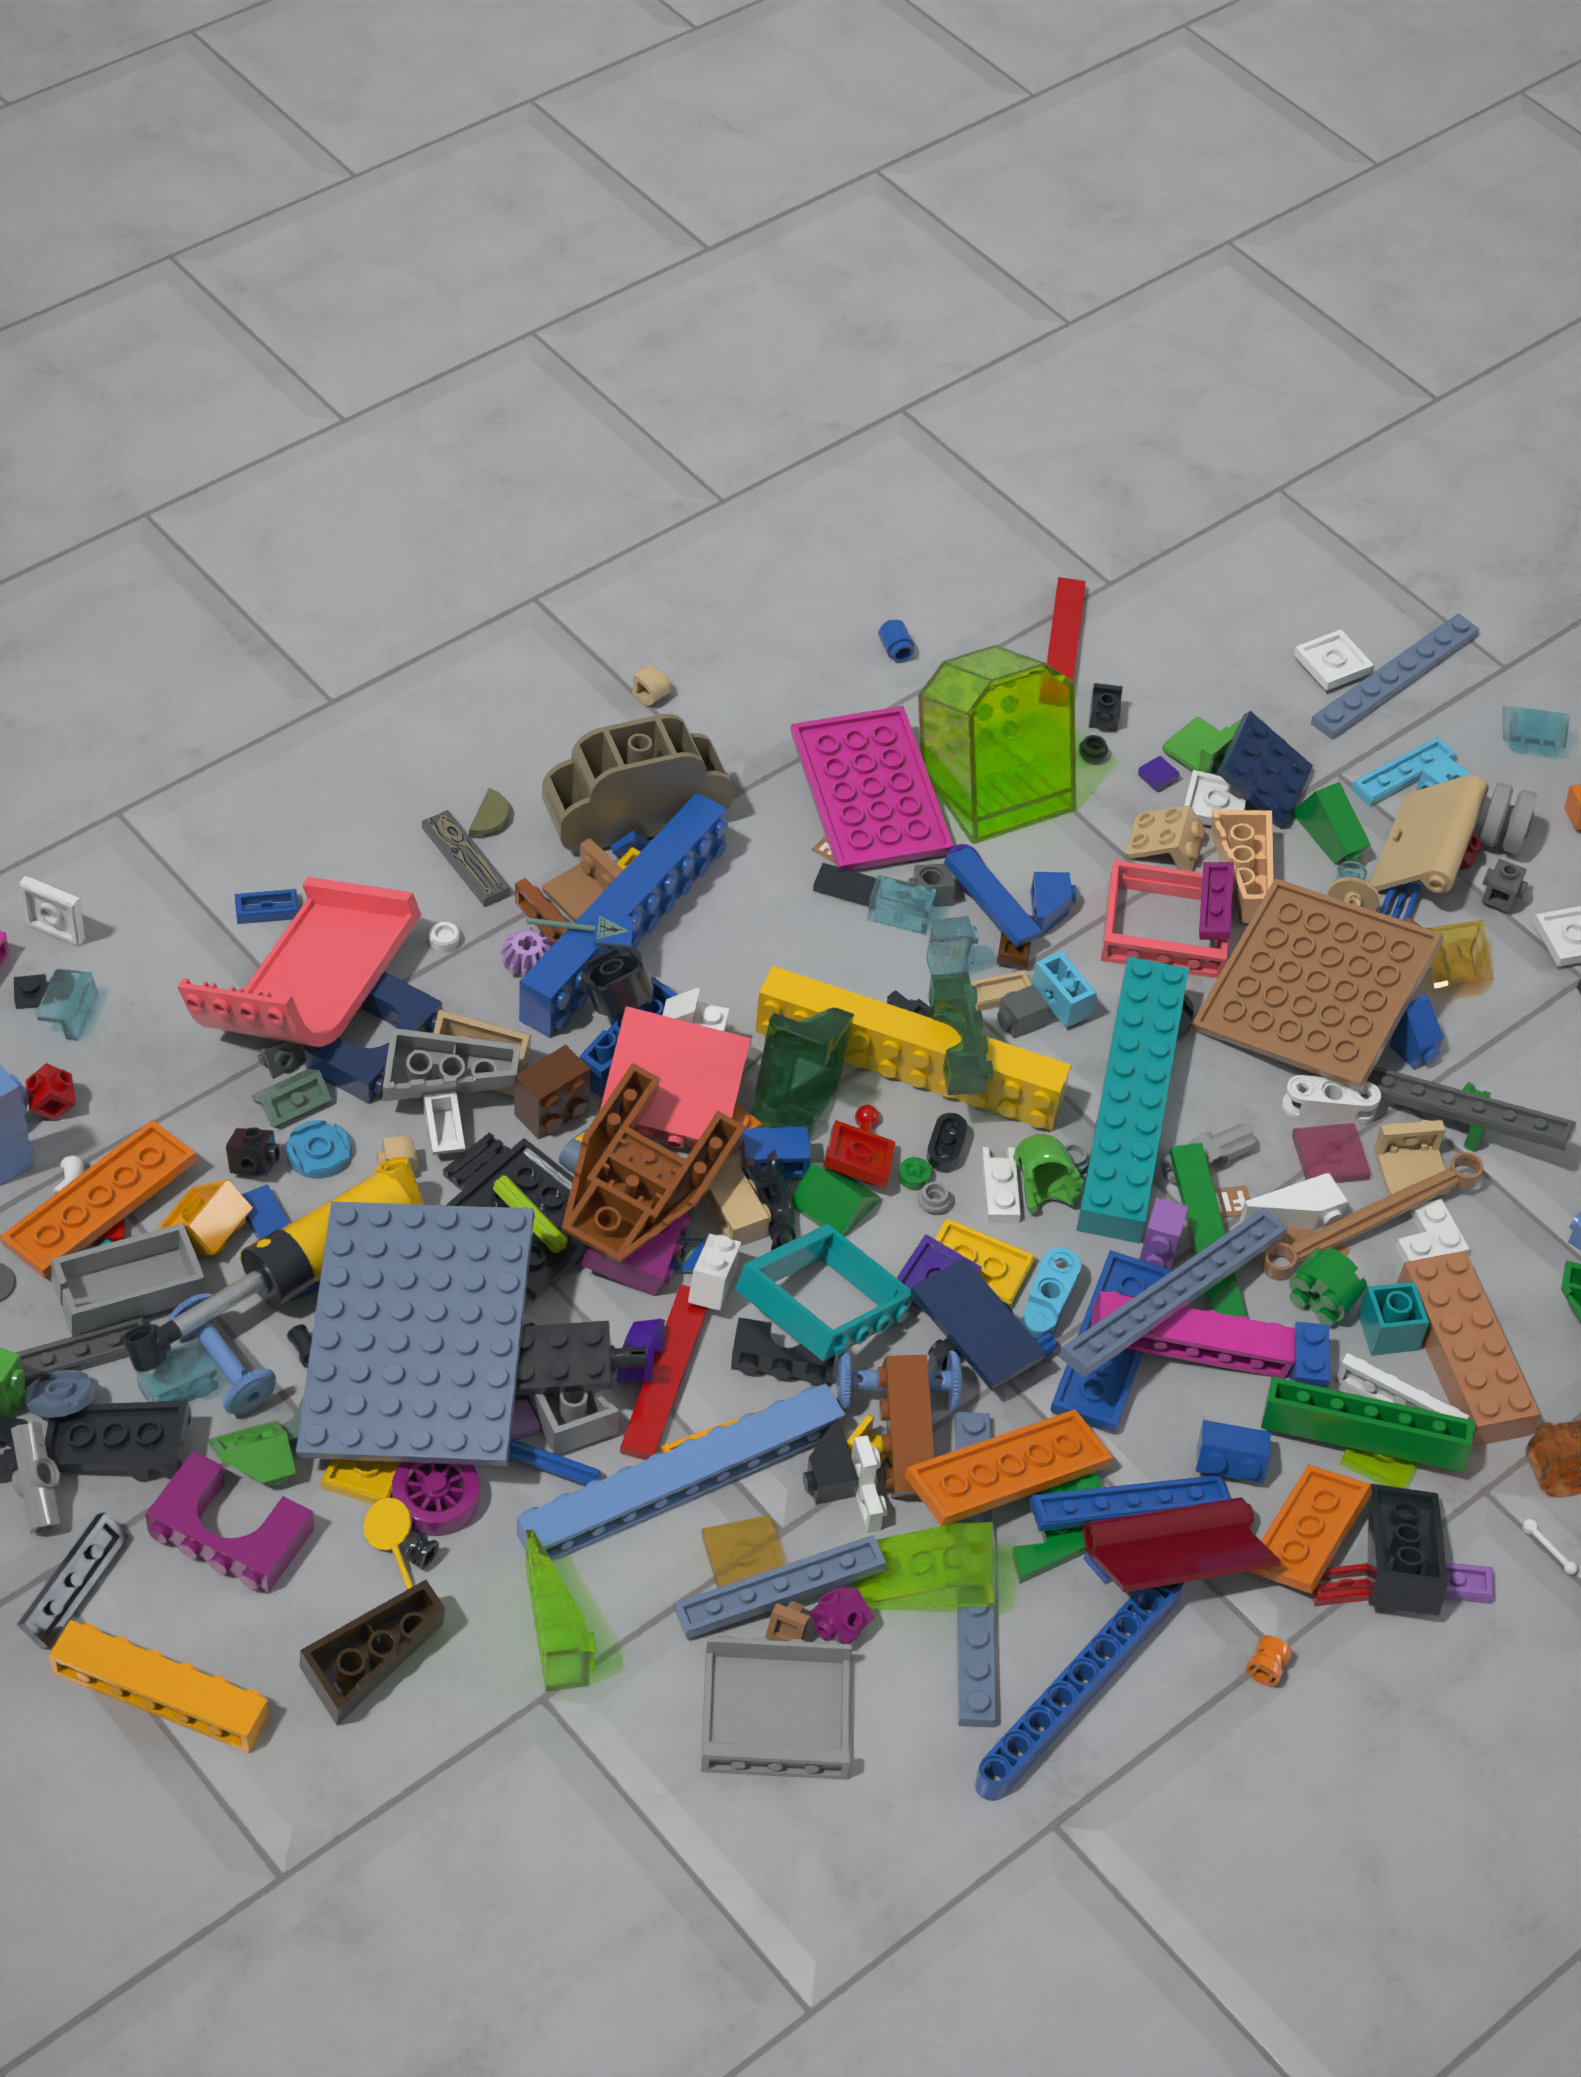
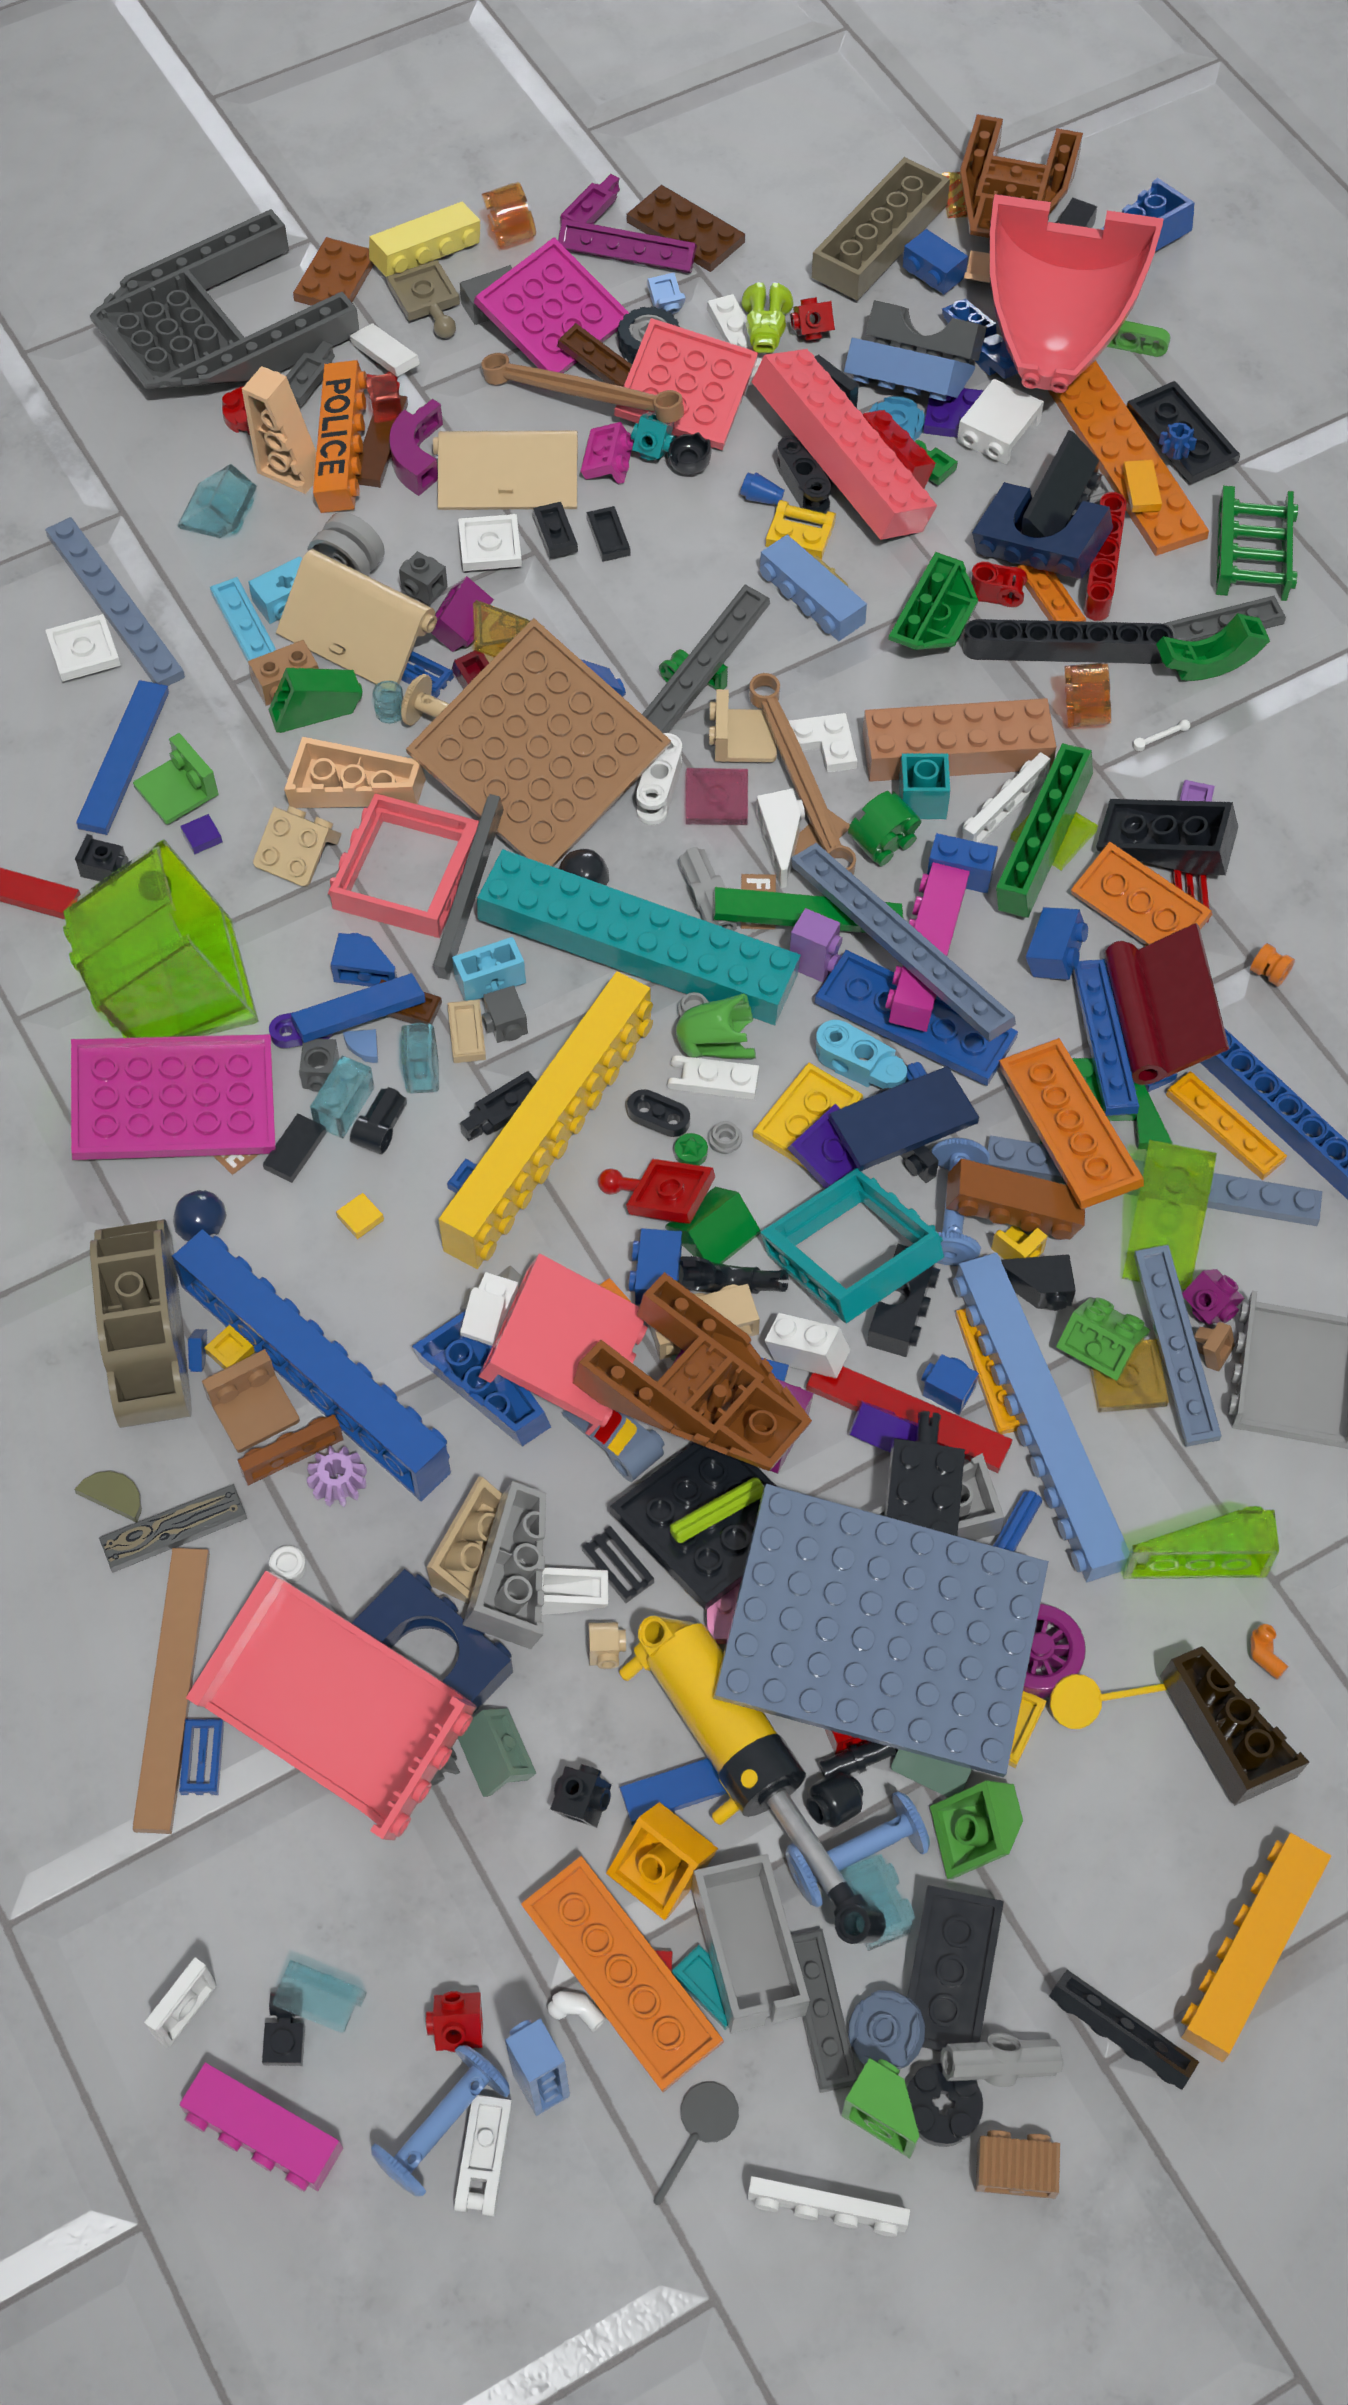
camera: 75 degrees left, 10 degrees up
(254, 1558) = (1054, 1911): magenta arch -> none
(269, 1339) = (835, 1799): none -> black head
(318, 1149) = (573, 1730): dark azure tile -> none
(387, 874) = (171, 1685): none -> medium nougat tile
(422, 1551) = (1110, 1670): black bush -> none
(461, 1686) = (1263, 1651): none -> orange arm
(552, 1092) = (553, 1468): reddish brown brick -> none
(608, 928) = (361, 1369): piece -> none
(618, 981) = (433, 1359): black brick -> none
(702, 1397) = (949, 1383): none -> blue brick
(762, 828) = (197, 1212): none -> dark blue hair
(779, 1517) = (1102, 1336): none -> bright green bracket
(788, 938) = (360, 1215): none -> yellow tile
(801, 1068) = (565, 1196): clear green windscreen -> none
(866, 1462) = (1083, 1253): white plate -> none
(876, 934) = (376, 1128): none -> black piece
(965, 1064) = (533, 1052): clear green arch -> none
(969, 909) = (363, 1044): none -> medium blue tile
(1058, 1631) = (1226, 1125): none -> light orange tile
(1195, 956) = (468, 886): none -> dark grey tile
(1204, 1056) = (586, 864): none -> black hair
(1211, 793) = (252, 790): white plate -> none
(1216, 901) = (411, 809): magenta plate -> none
(1224, 707) = (122, 757): none -> blue tile
(1265, 769) = (233, 734): dark blue plate -> none
(1365, 799) = (269, 668): none -> medium nougat brick
(1462, 909) = (456, 614): none -> magenta brick

